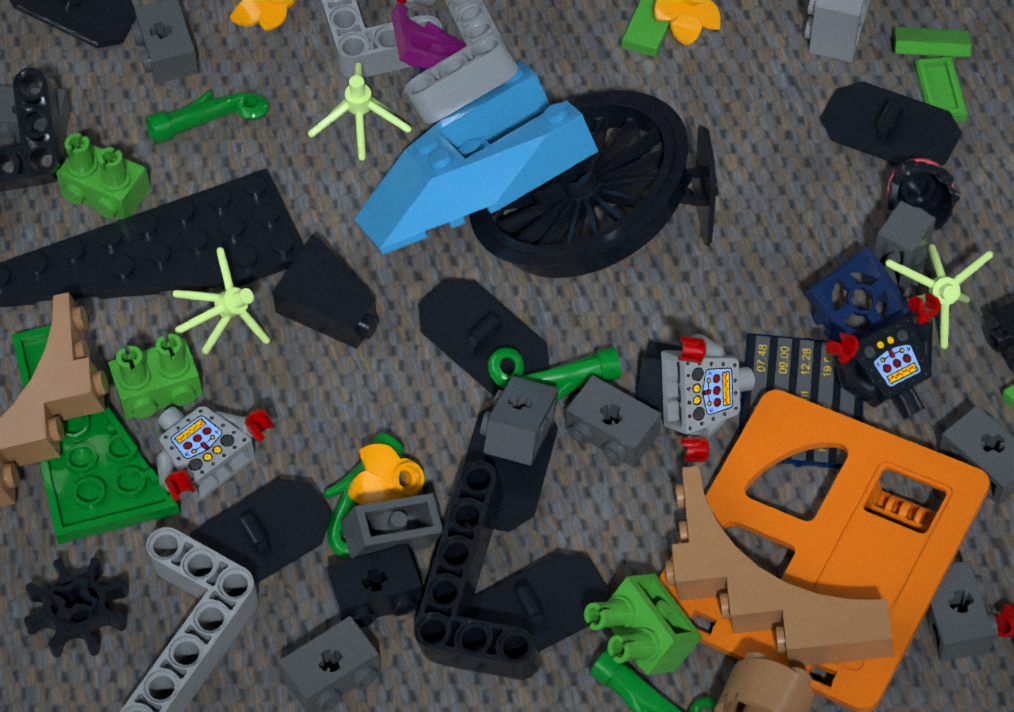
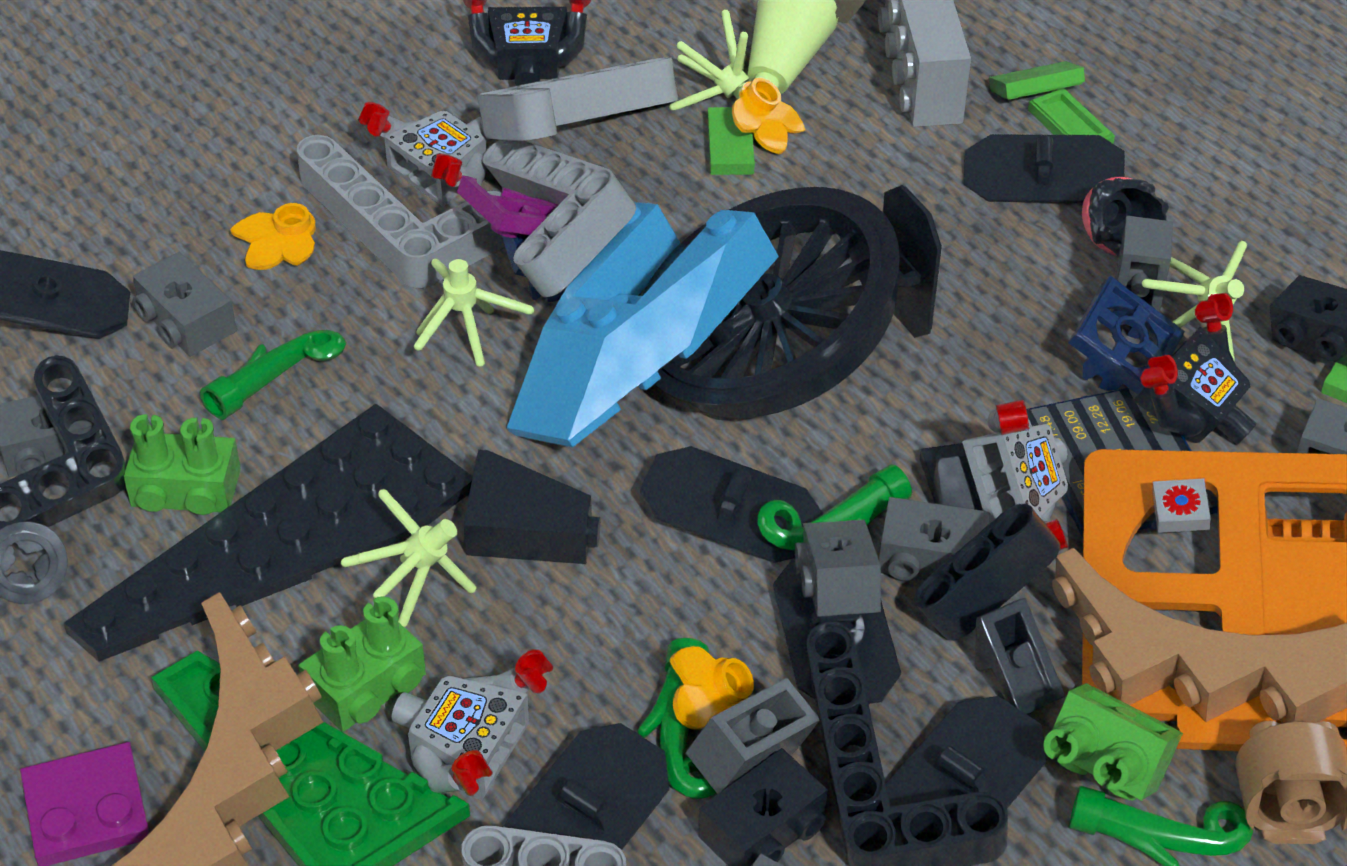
camera: 25 degrees left, 10 degrees down
(619, 535) = (1016, 652): none -> black slope
(628, 461) = (987, 571): none -> black beam
(809, 458) = (1181, 505): none -> light grey tile

